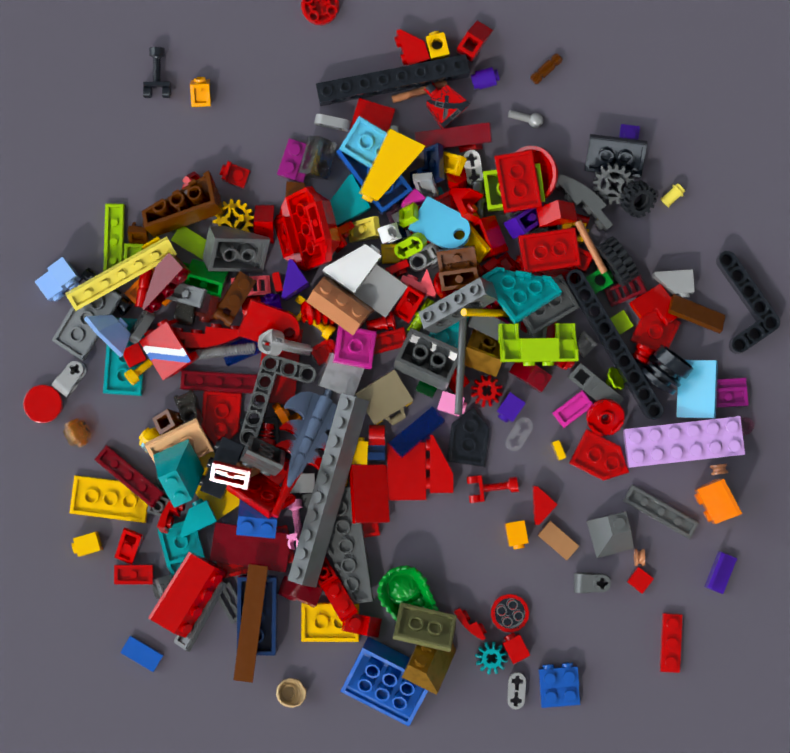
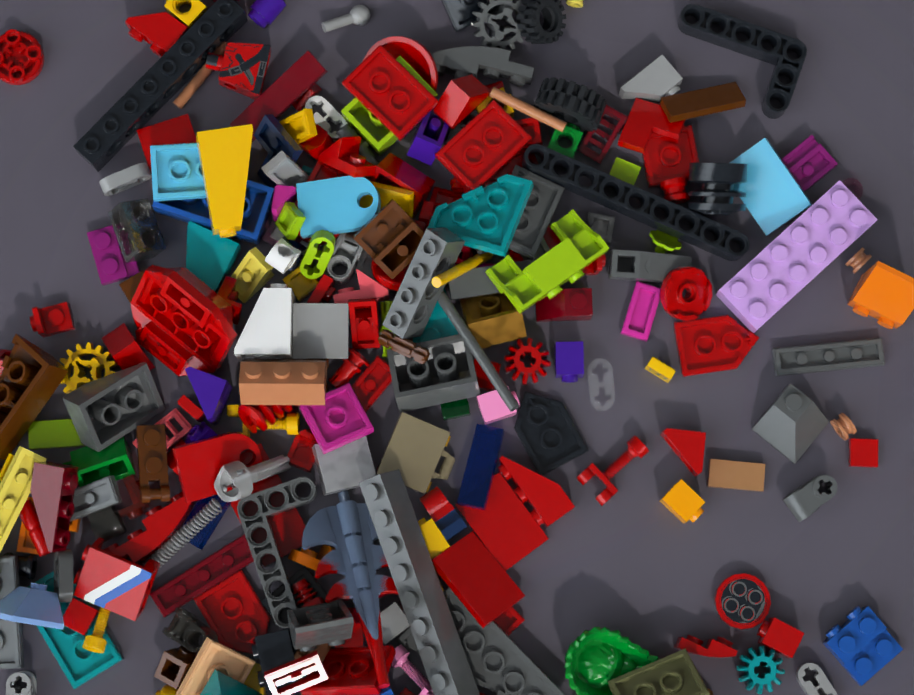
camera: 40 degrees left, 5 degrees down
(421, 333) = (403, 346): none -> reddish brown axle

